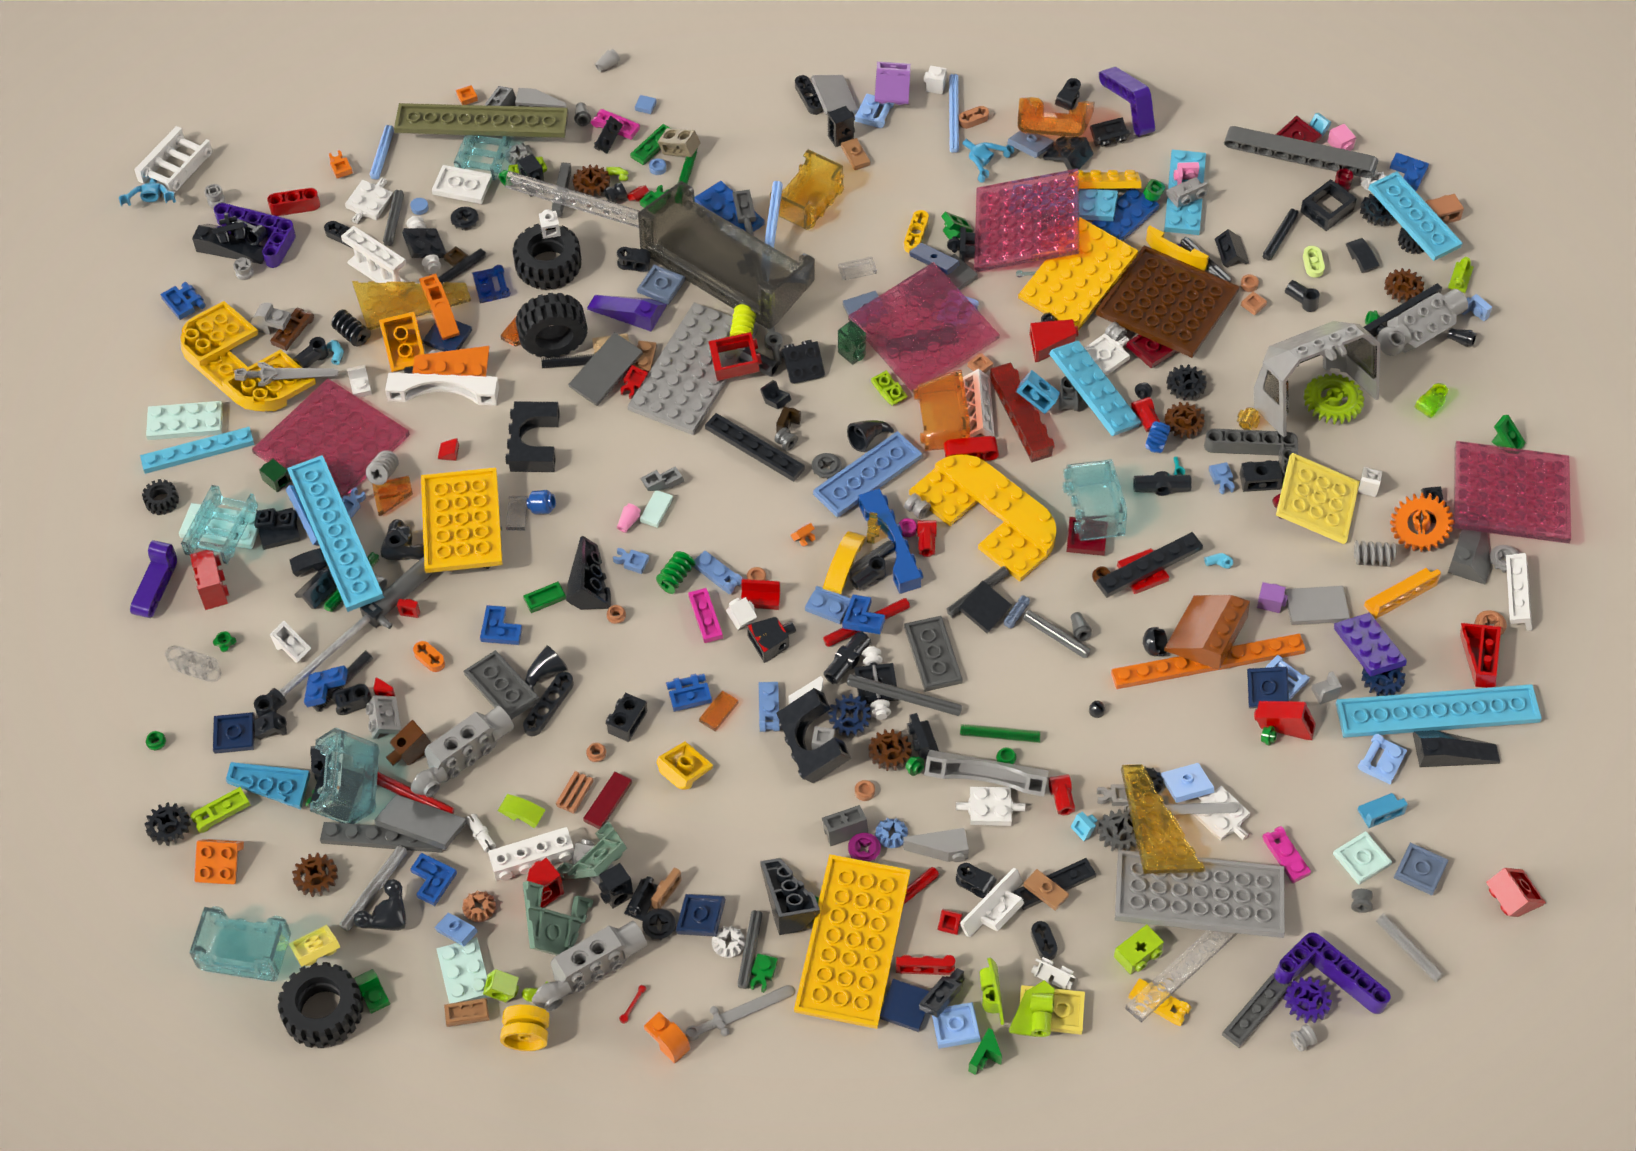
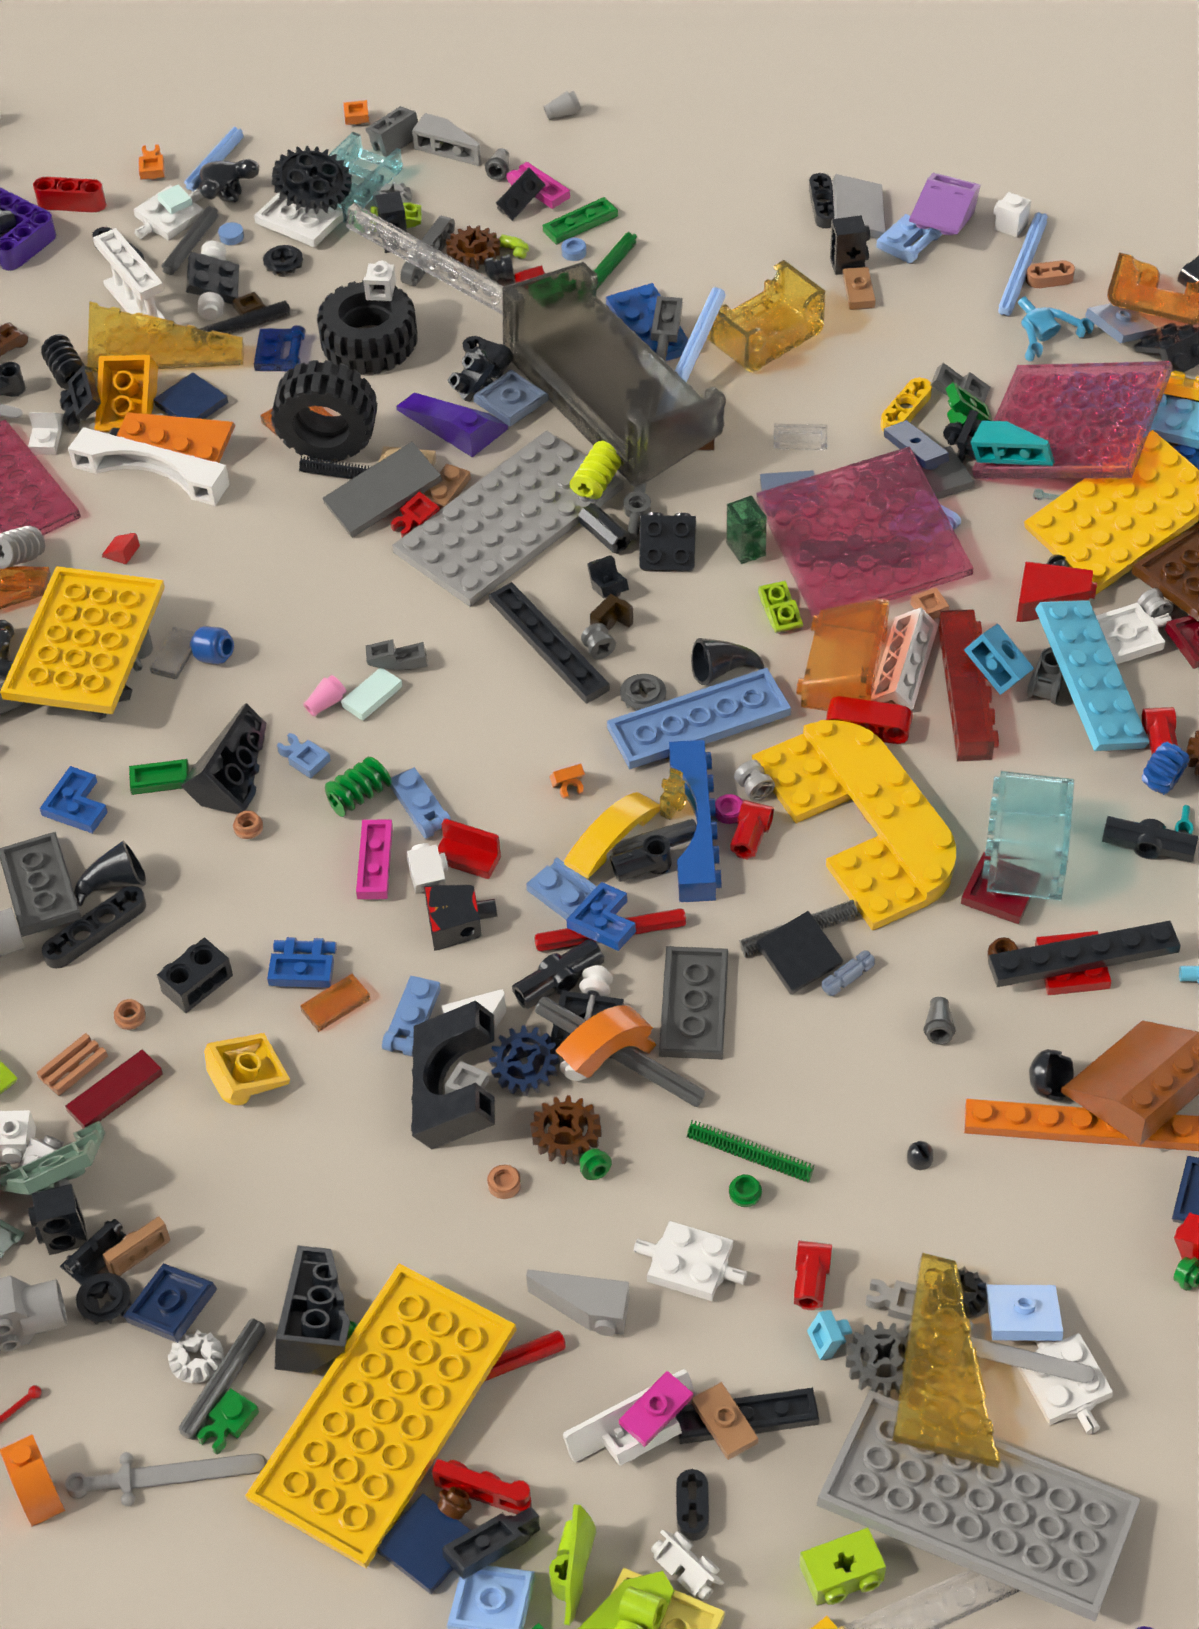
camera: 20 degrees right, 5 degrees down
(337, 350) = (36, 389): medium azure arm -> none
(372, 190) = (174, 199): none -> light aqua tile
(377, 348) = (80, 398): none -> black plate
(397, 166) = (223, 178): none -> black head
(439, 306) = (190, 358): orange slope -> none
(465, 156) = (311, 179): none -> black gear
(481, 120) = (356, 141): olive plate -> none
(524, 417) = (240, 528): black arch -> none
(632, 275) = (474, 375): none -> black hips
(645, 104) = (591, 169): medium blue tile -> none
(679, 142) = (613, 221): dark tan brick -> none
(732, 343) = (566, 492): red window -> none
(756, 573) = (476, 818): nougat tile -> none
(844, 825) = (448, 1226): dark grey hinge -> none
(864, 840) = (472, 1258): magenta gear -> none
(895, 690) = (603, 1036): none -> orange arch
(897, 838) = (516, 1273): medium blue gear -> none
(913, 978) = (454, 1502): none -> reddish brown plate
(922, 736) = (625, 1124): black bracket -> none
(937, 208) = (945, 376): none -> dark grey slope
(950, 921) = (551, 1425): red slope -> none
(956, 766) = (746, 1225): light grey arch -> none
(976, 880) = (621, 1374): black piece -> none
(995, 246) = (1009, 444): none -> teal slope
(1007, 893) = (655, 1408): none -> dark pink plate
(1056, 634) = (899, 1023): dark grey axle -> none
(1143, 390) = (1169, 696): black plate -> none
(1286, 854) = (1154, 1481): dark pink plate -> none

